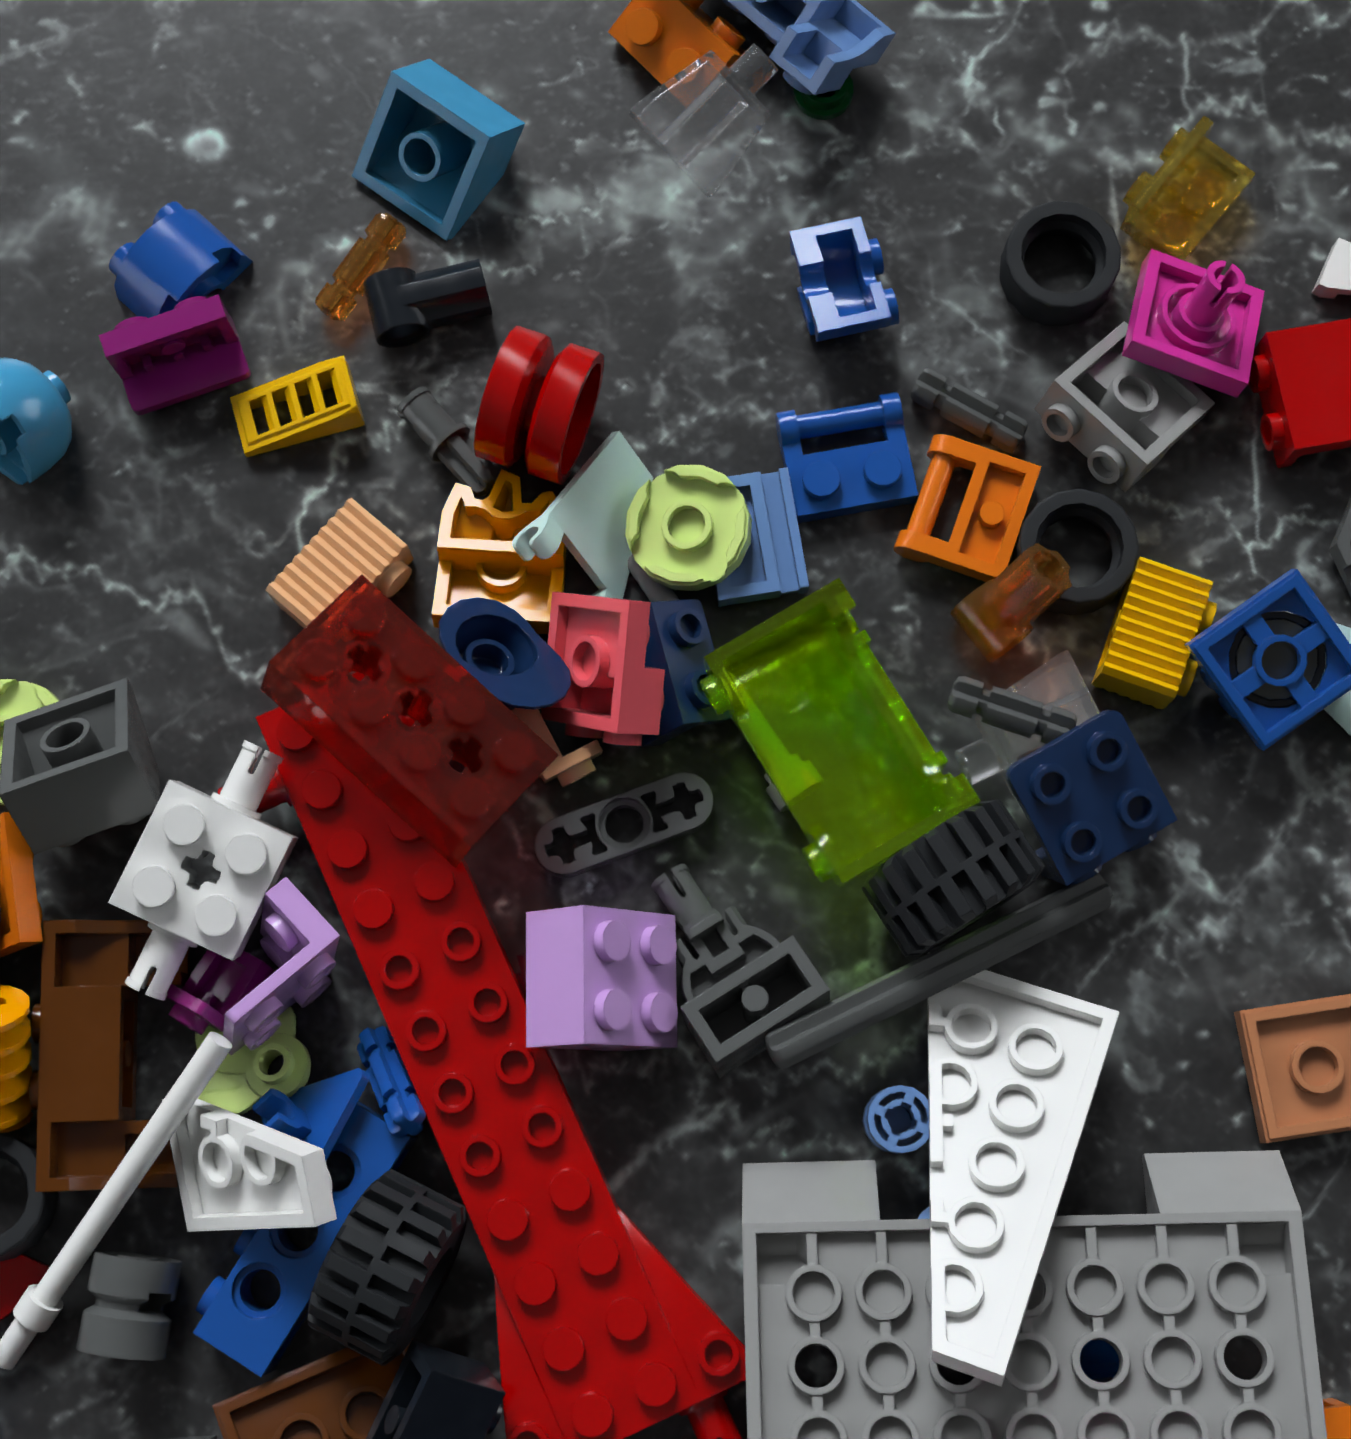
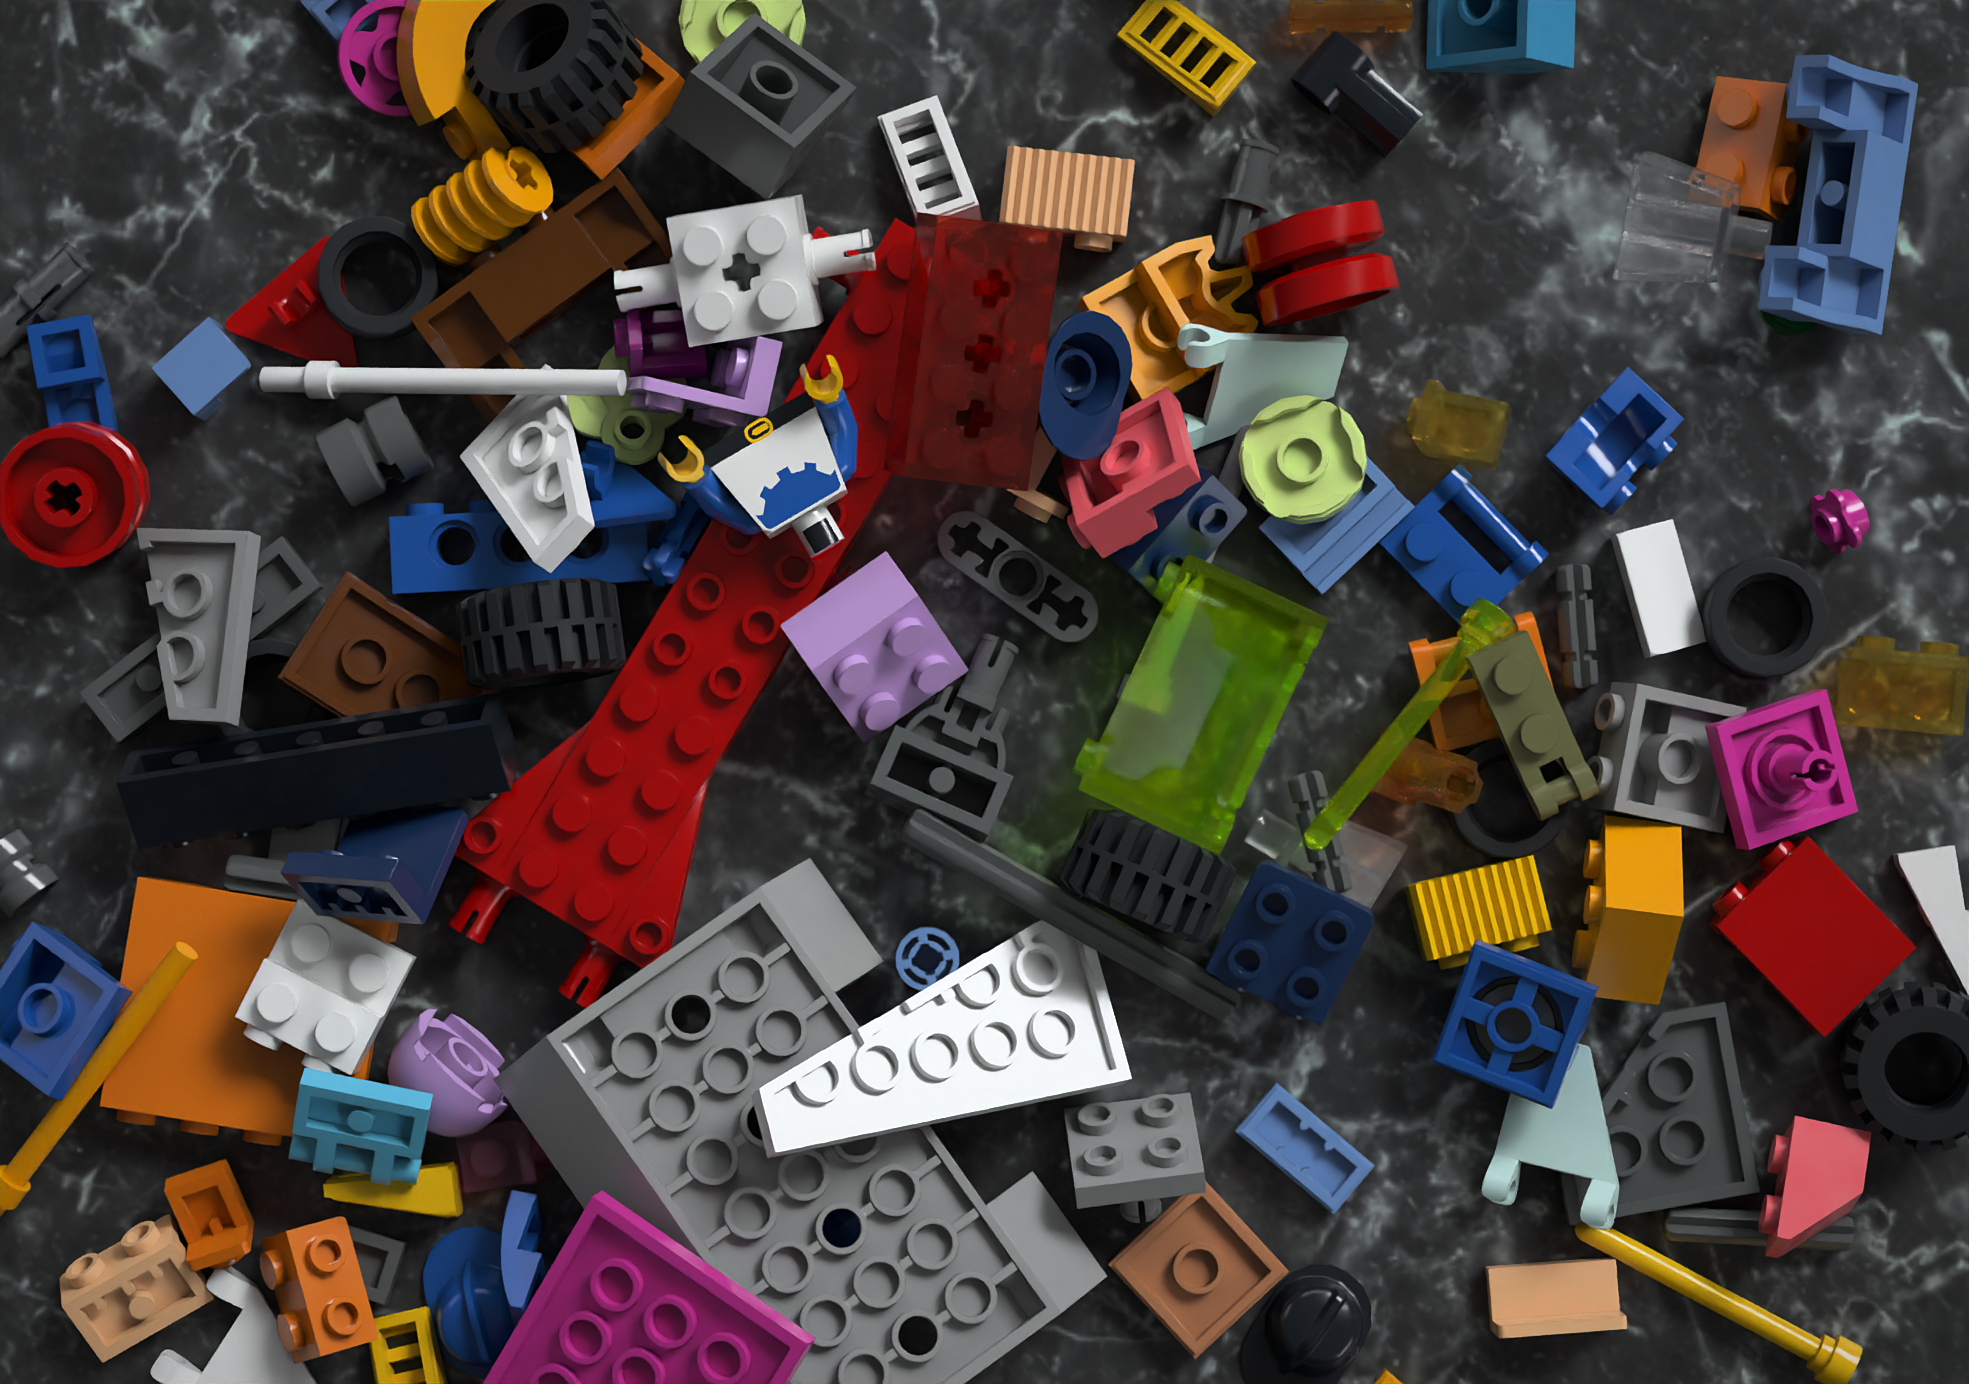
camera: 55 degrees right, 10 degrees up
(238, 691) = (950, 198): none -> white slope
(388, 951) = (780, 466): none -> torso
(746, 392) = (1458, 426): none -> clear yellow bracket
(926, 476) = (1481, 626): none -> clear neon green piece
(980, 331) = (1658, 588): none -> white slope
(1019, 158) = (1839, 519): none -> dark pink plate
(1032, 483) = (1531, 722): none -> olive plate
(1186, 1052) = (1134, 1153): none -> light grey plate
(1241, 502) = (1631, 909): none -> light orange brick
(1266, 908) = (1304, 1148): none -> medium blue plate

